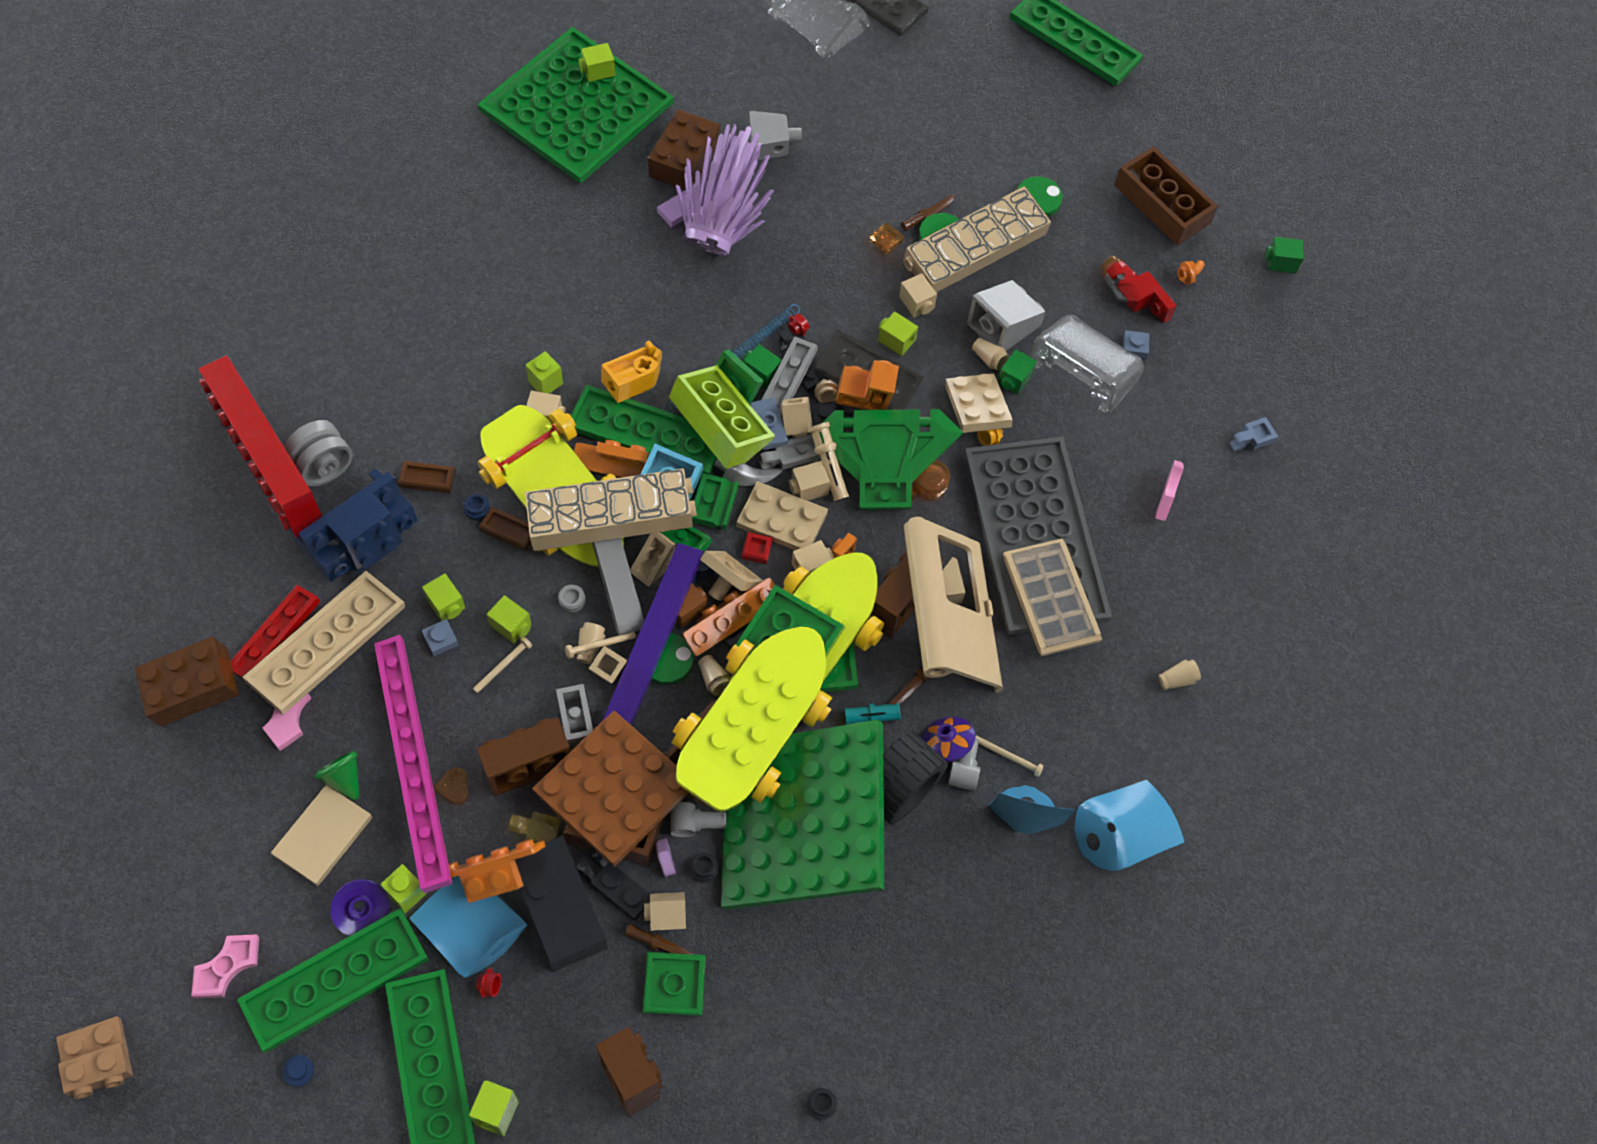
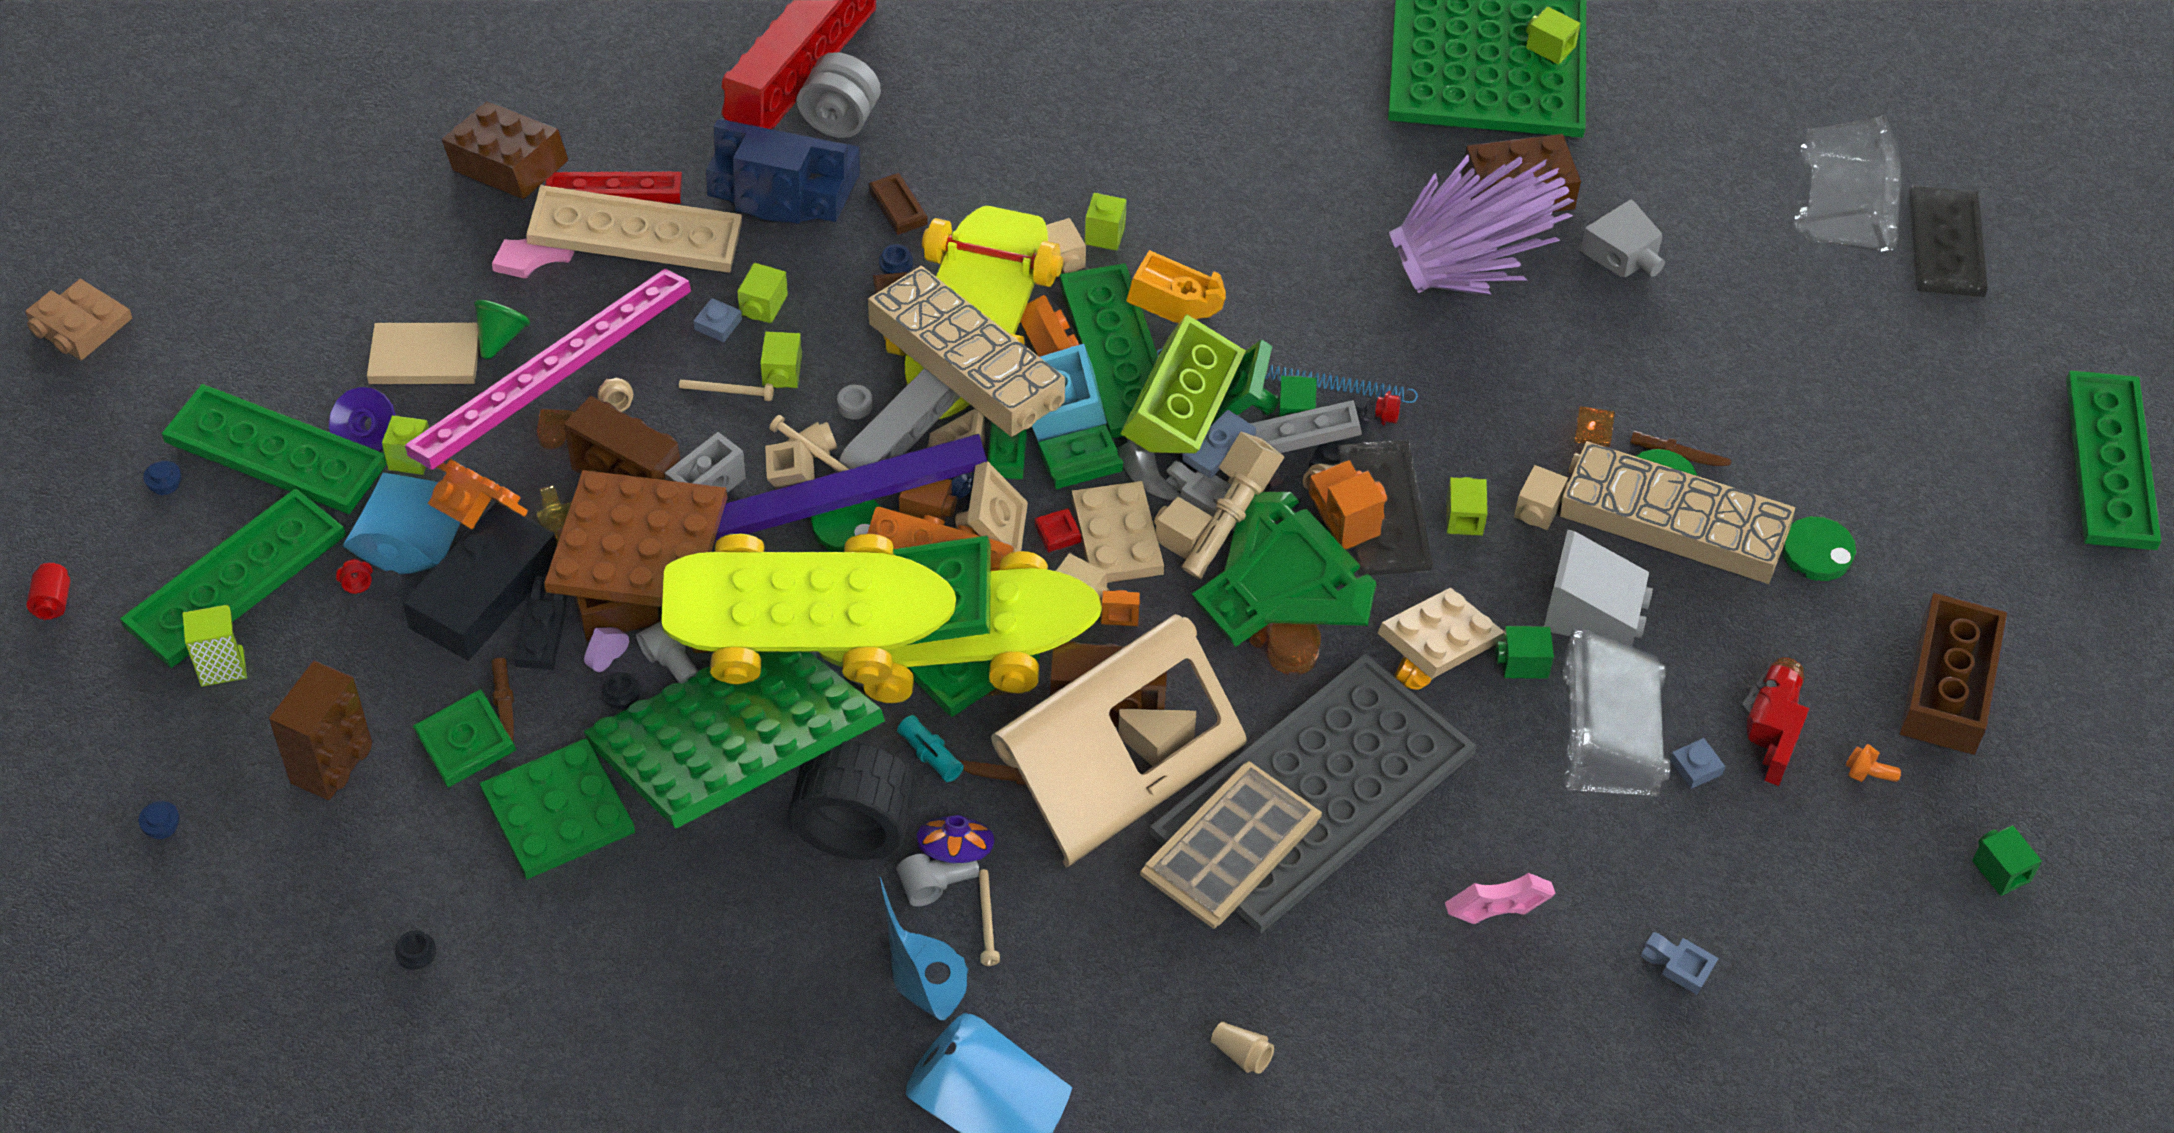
camera: 60 degrees right, 10 degrees down
(213, 977) = (250, 362): bright pink tile -> none
(459, 734) = (616, 392): none -> tan plate
(666, 911) = (539, 679): tan brick -> none
(767, 956) = (557, 808): none -> green plate
(991, 354) = (1529, 609): tan cone -> none

